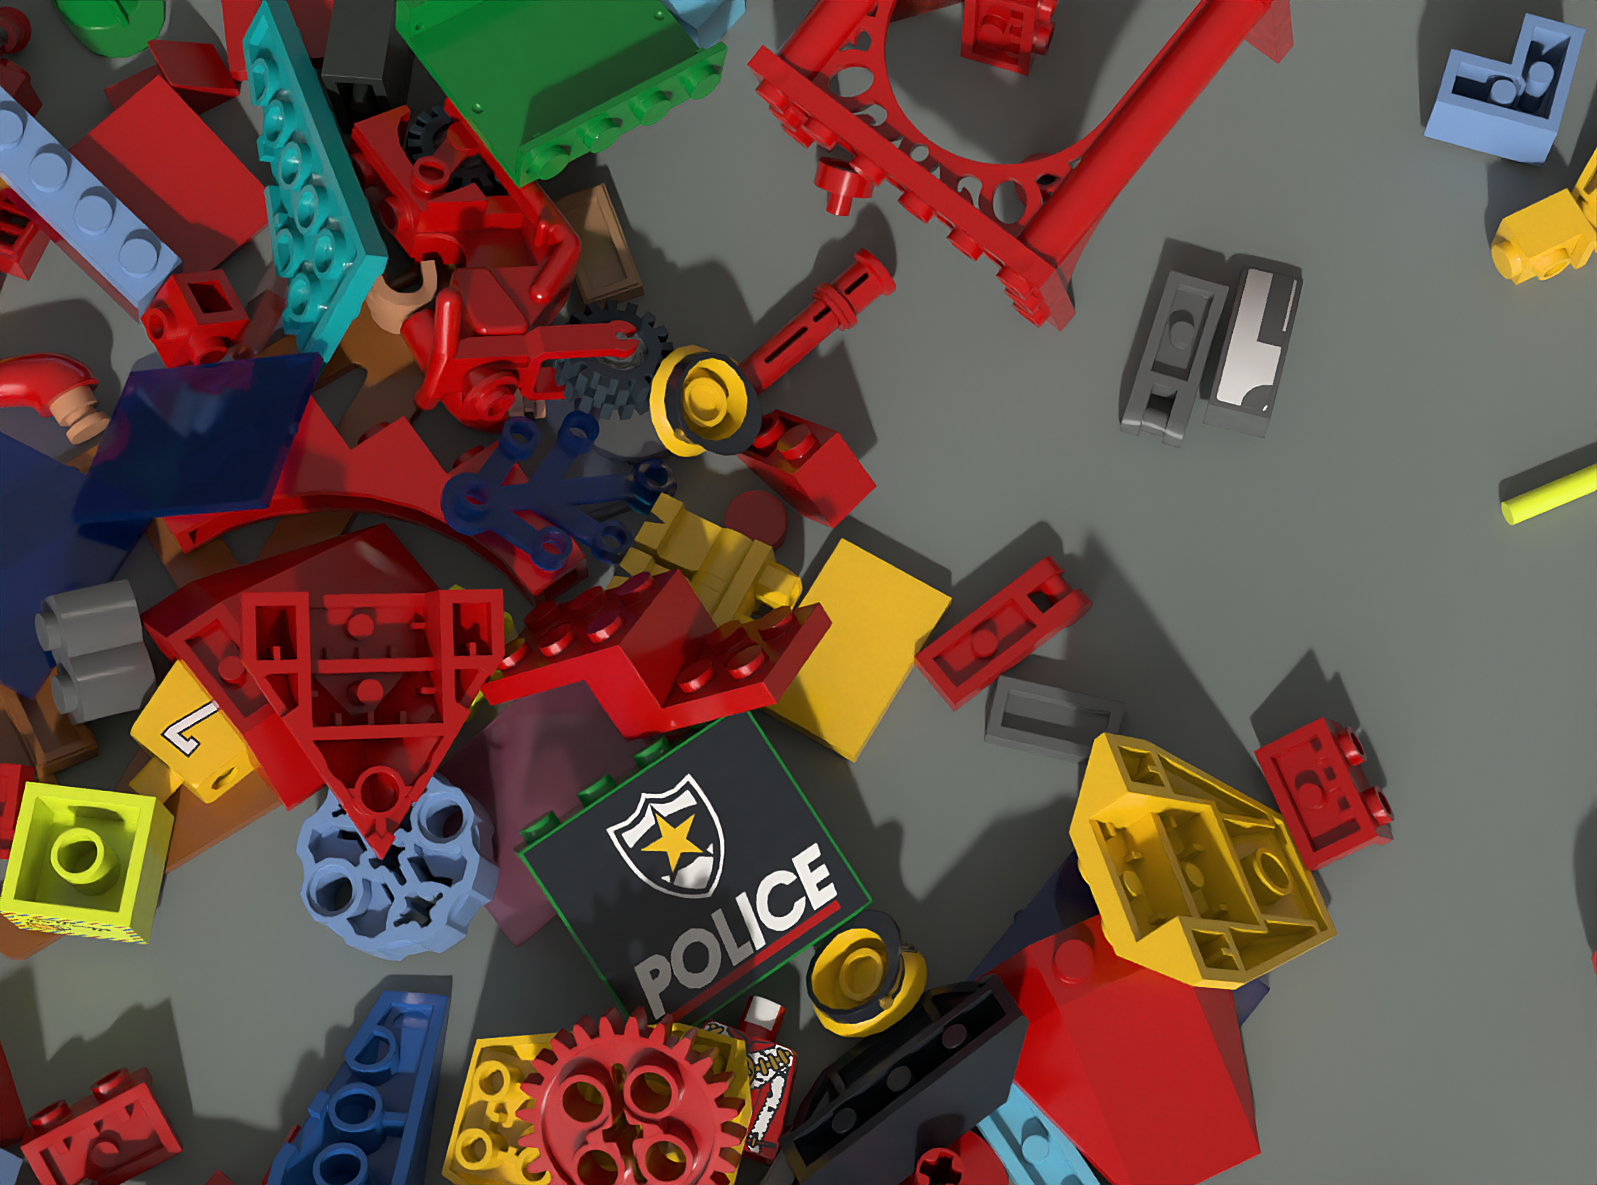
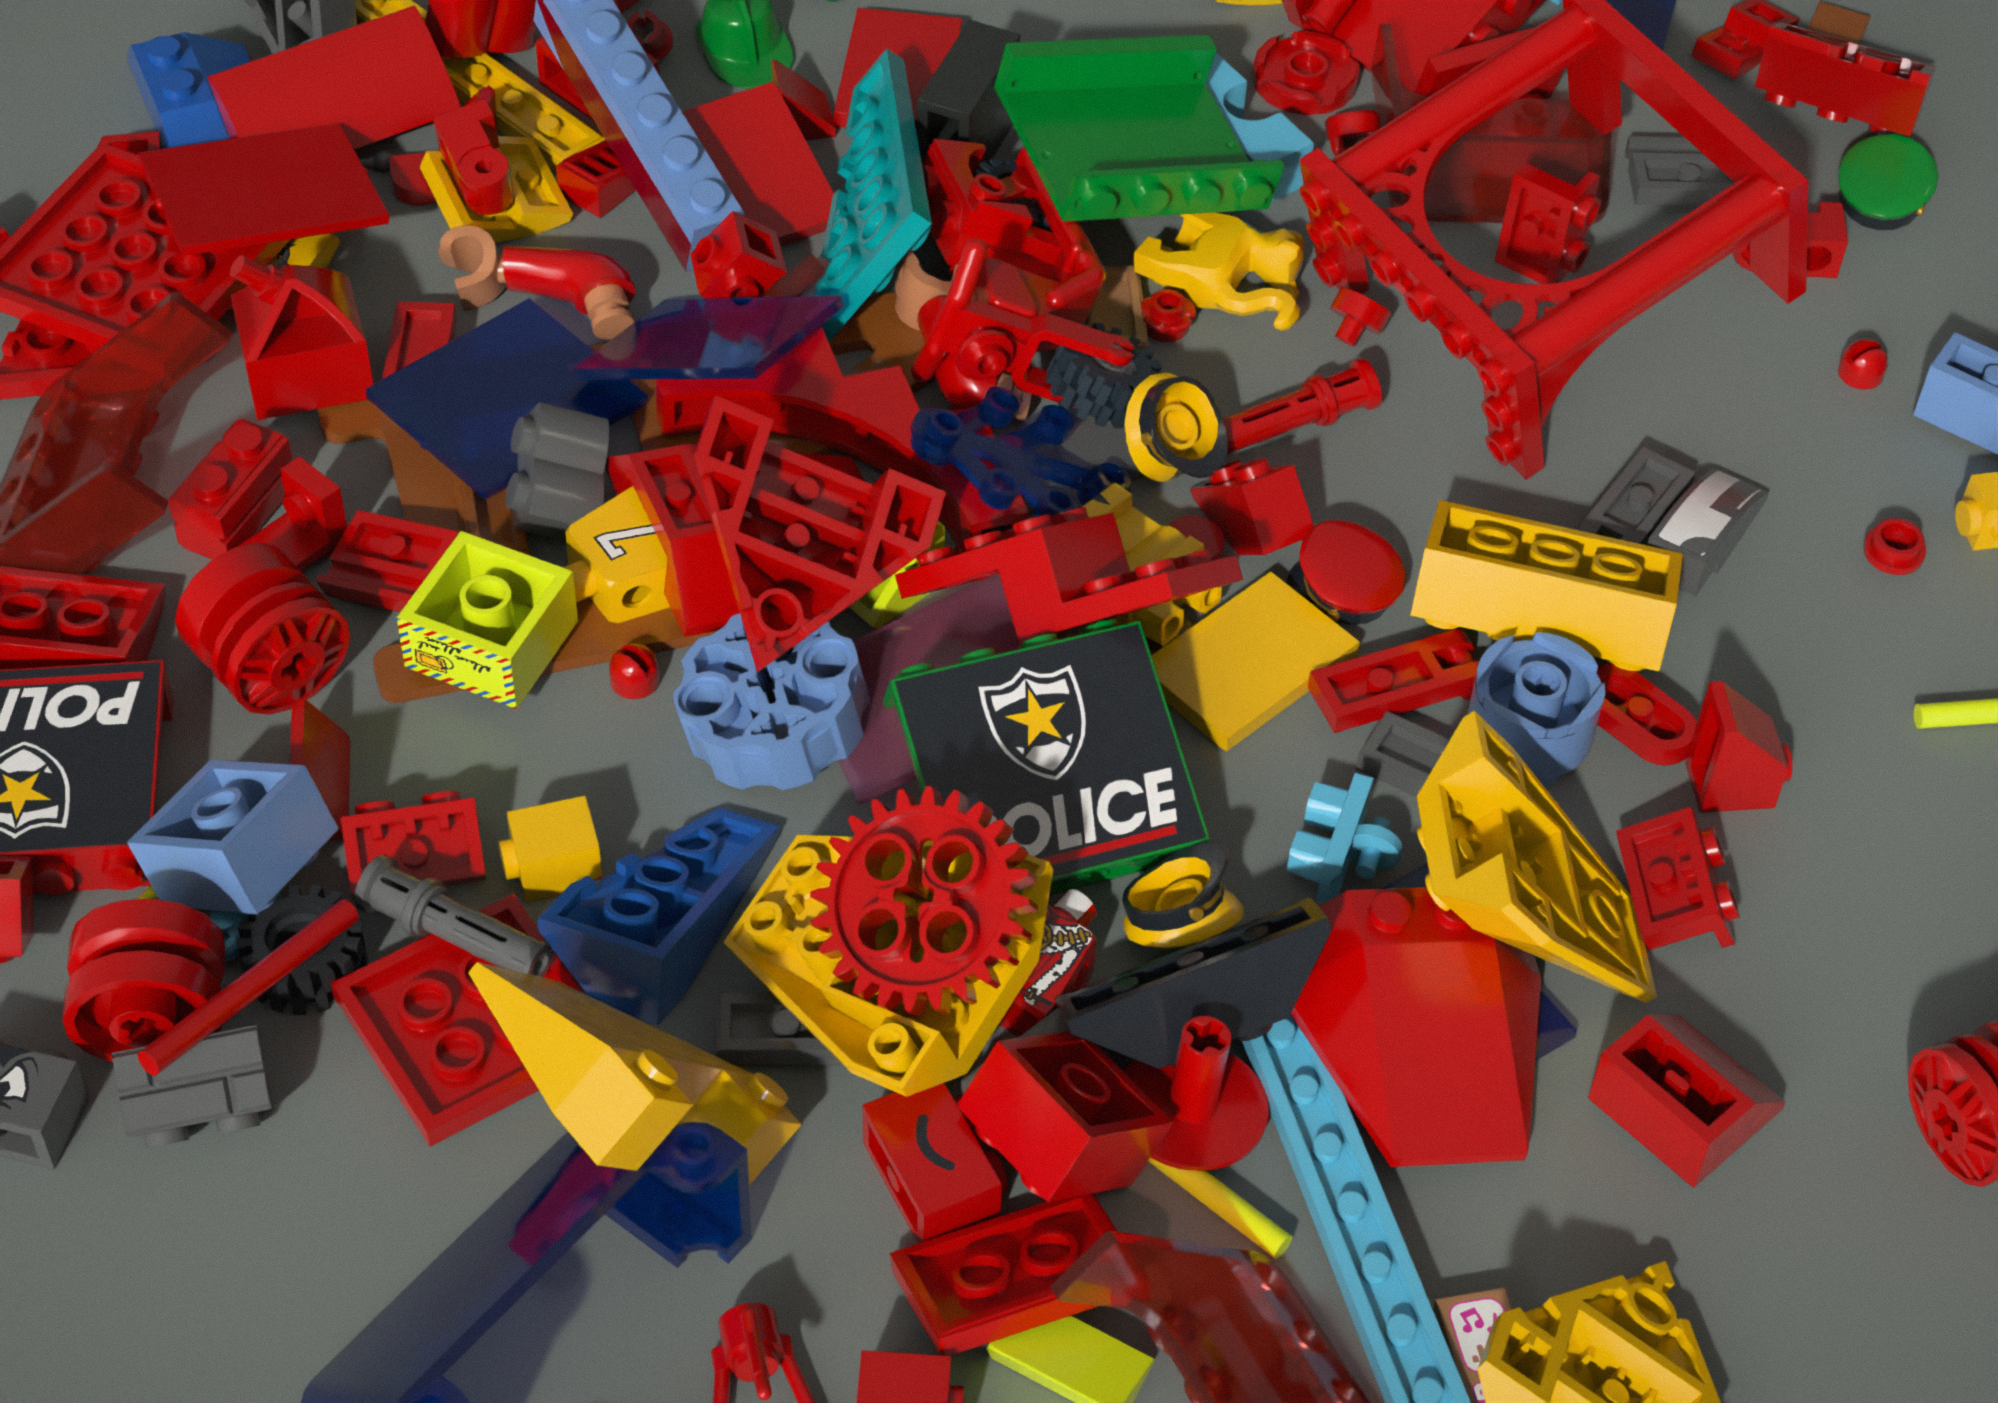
camera: 10 degrees right, 20 degrees down
(237, 1103) = (550, 847): none -> yellow brick
(244, 866) = (627, 675): none -> red hinge
(652, 250) = (1167, 315): none -> red plate
(684, 160) = (1215, 258): none -> yellow animal
(918, 517) = (1347, 572): none -> red piece
(990, 874) = (1344, 814): none -> medium azure hips
(1123, 489) = (1546, 578): none -> yellow brick
(1149, 599) = (1540, 700): none -> medium blue brick
(1244, 600) = (1645, 717): none -> red plate
(1350, 633) = (1736, 754): none -> red slope
(1367, 93) = (1863, 364): none -> red hinge
(1392, 1041) = (1681, 1095): none -> red slope
(1447, 300) = (1895, 547): none -> red plate

